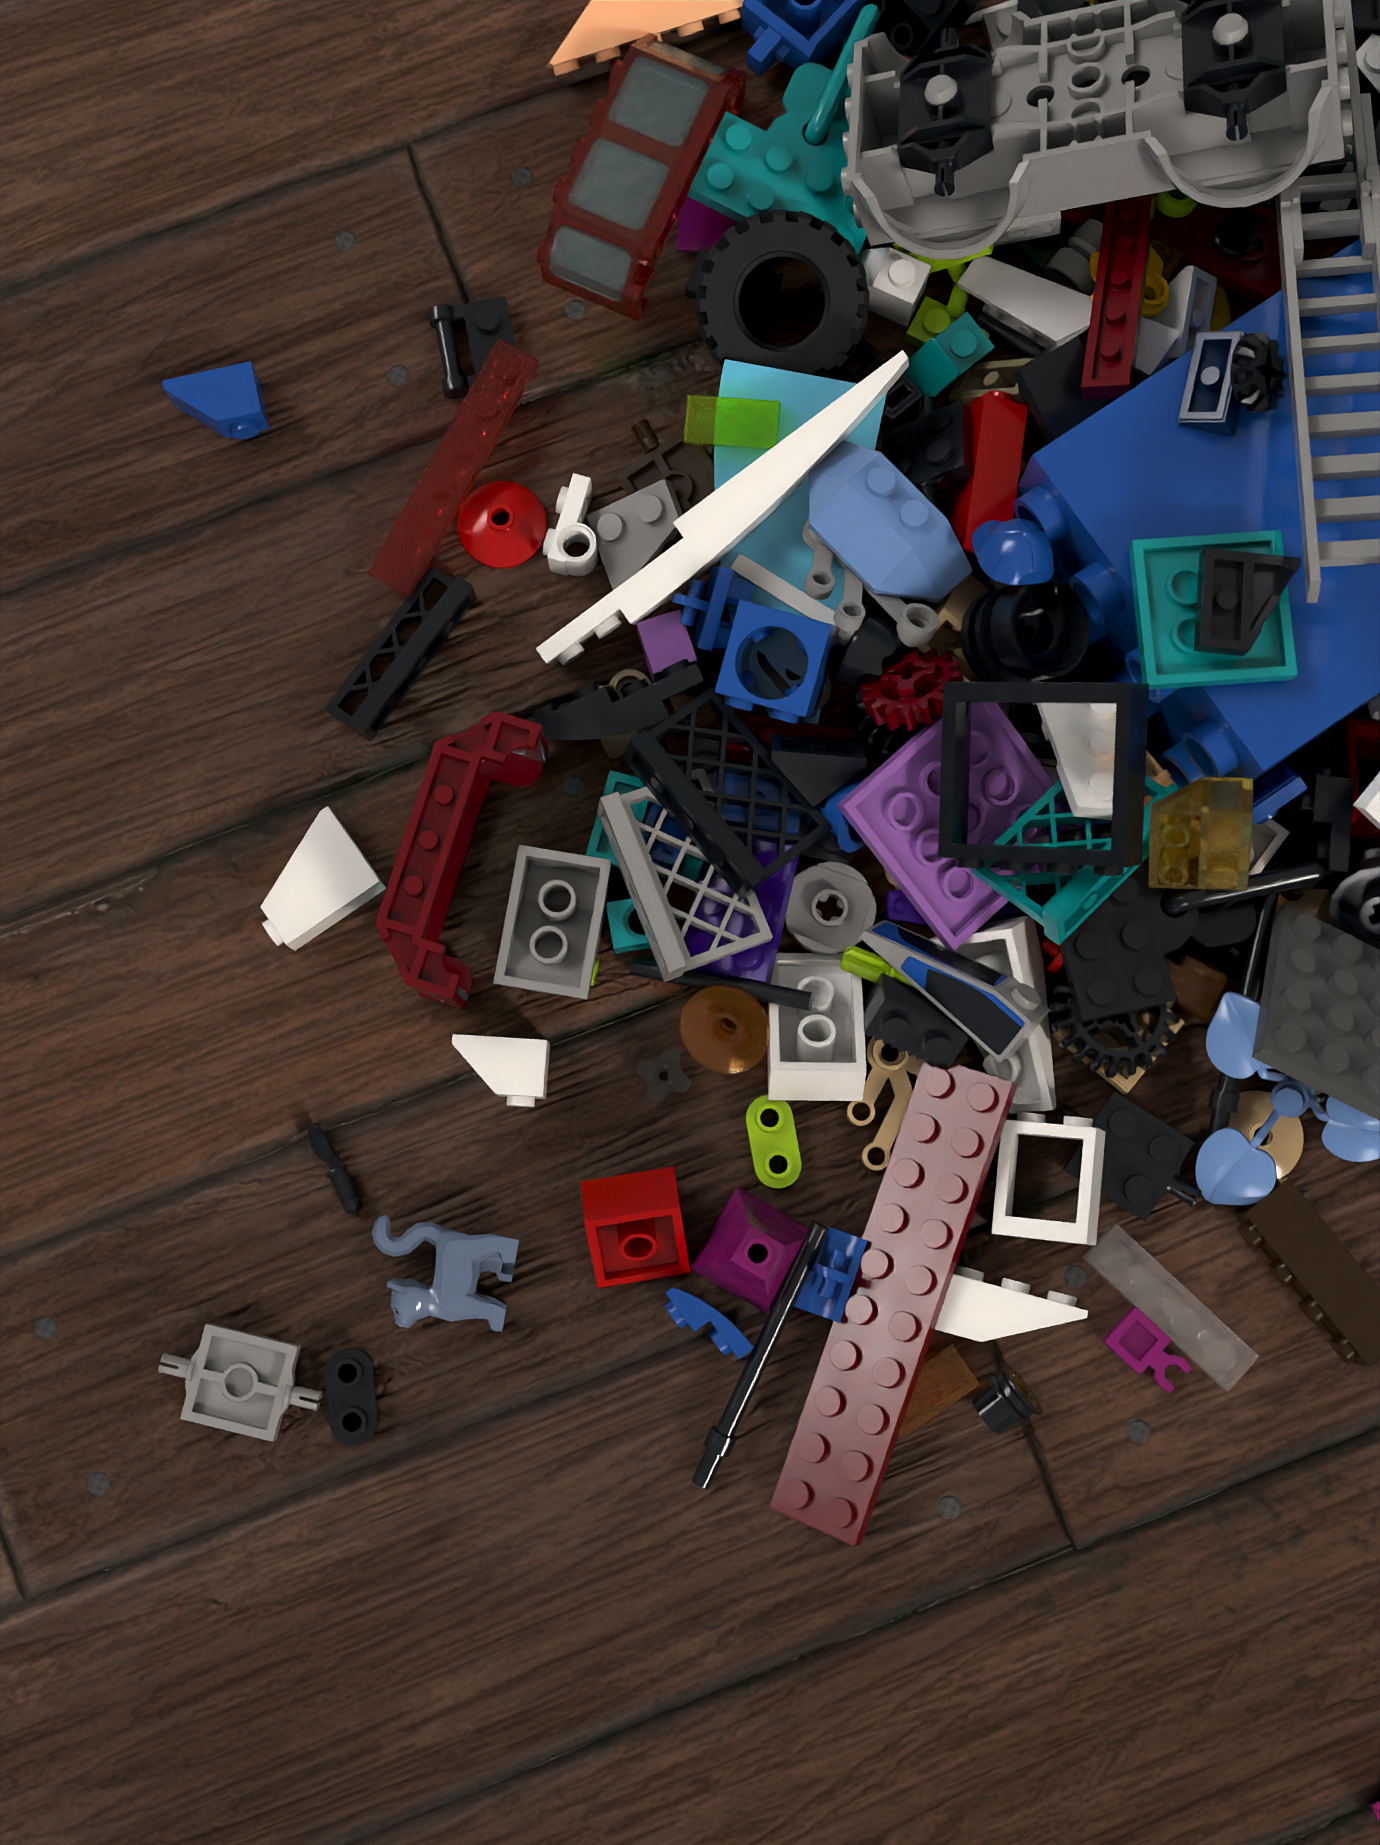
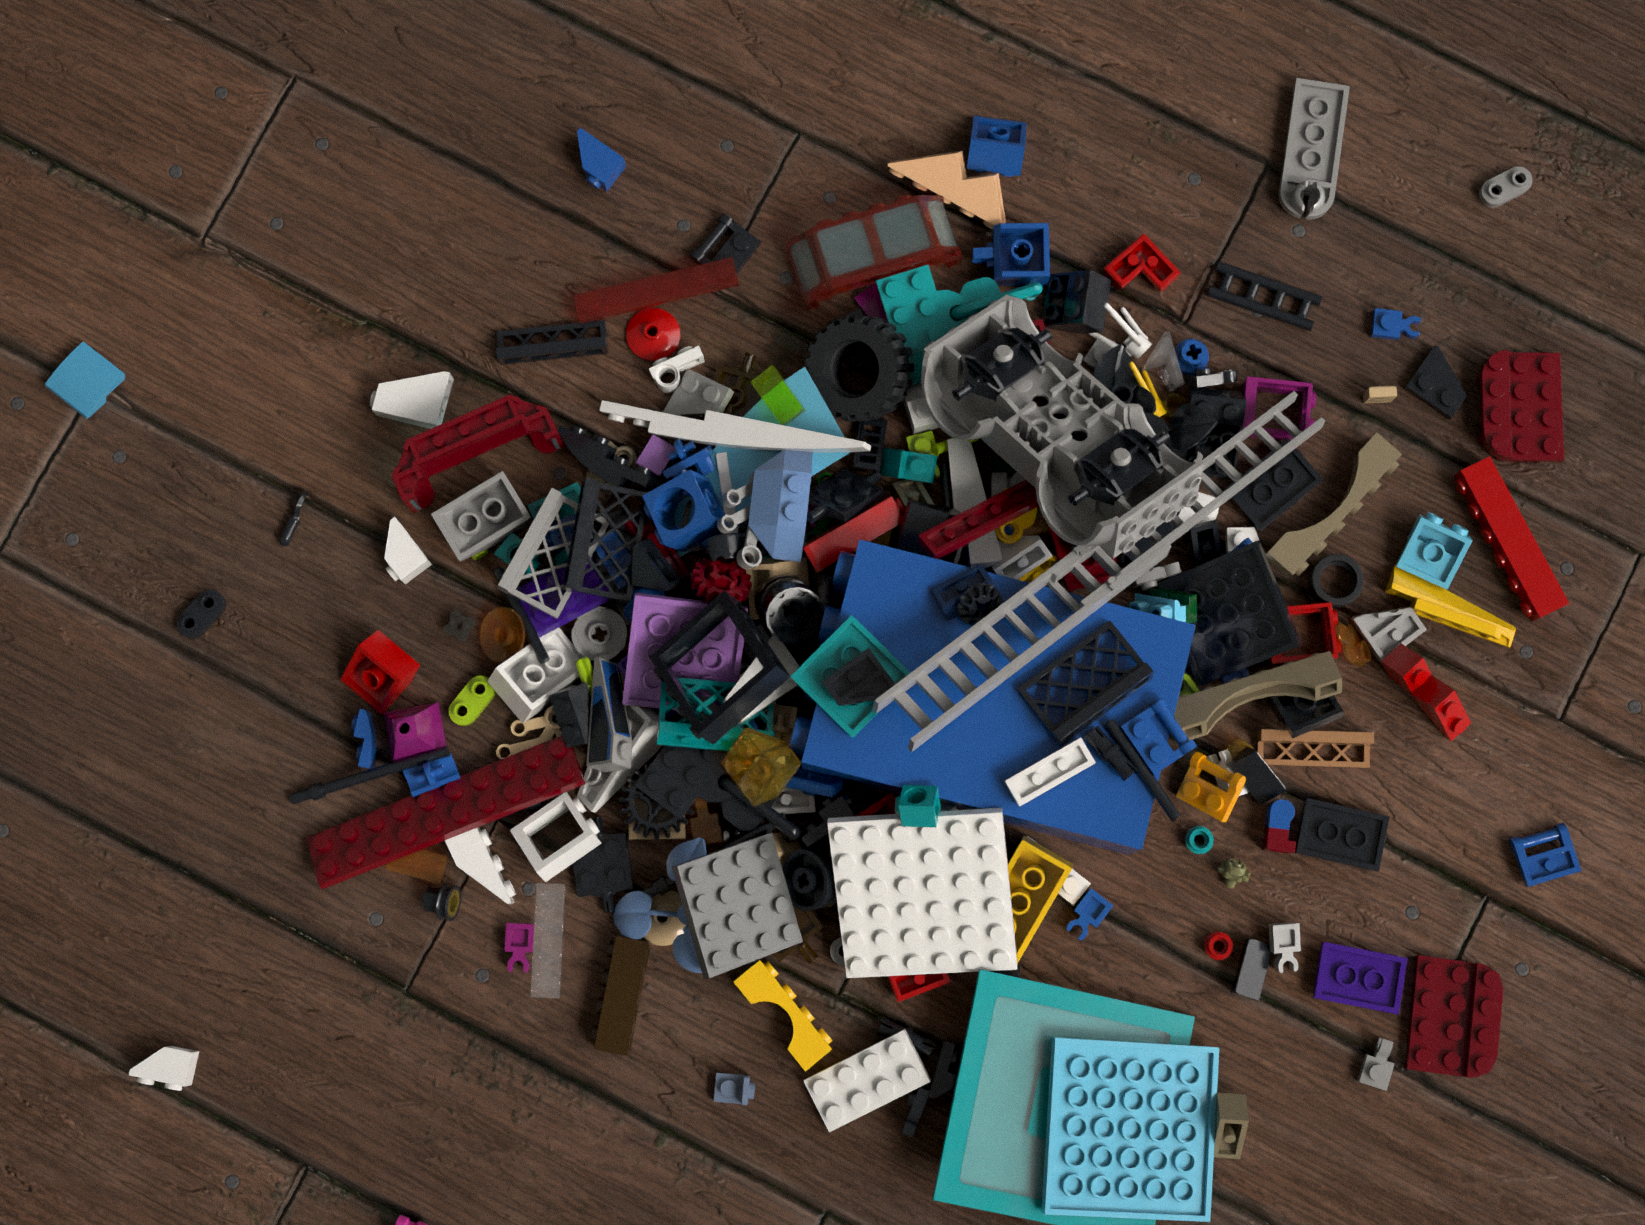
camera: 50 degrees right, 0 degrees up
(240, 1382) = (166, 560): light grey plate -> none
(456, 1276) = (291, 612): sand blue animal -> none
(1014, 551) = (814, 571): blue piece -> none

